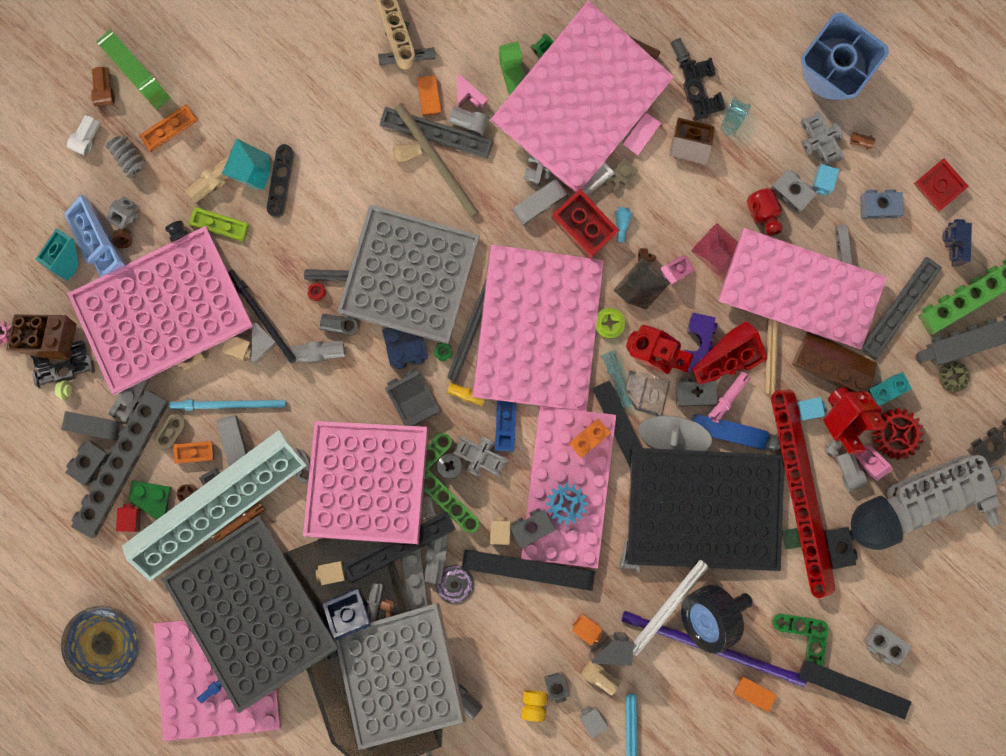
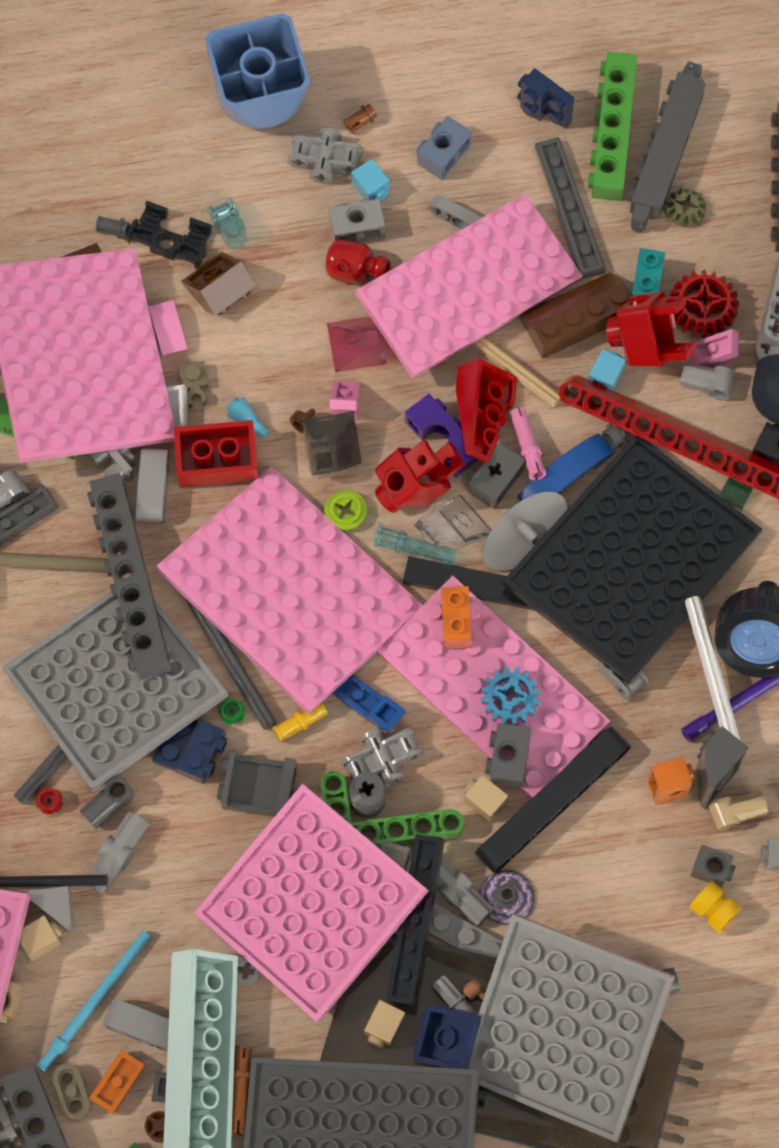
camera: 45 degrees left, 15 degrees down
(511, 178) = (155, 658): none -> dark grey brick
(833, 448) = (668, 380): light grey pin -> none
(941, 184) = (470, 76): red plate -> none

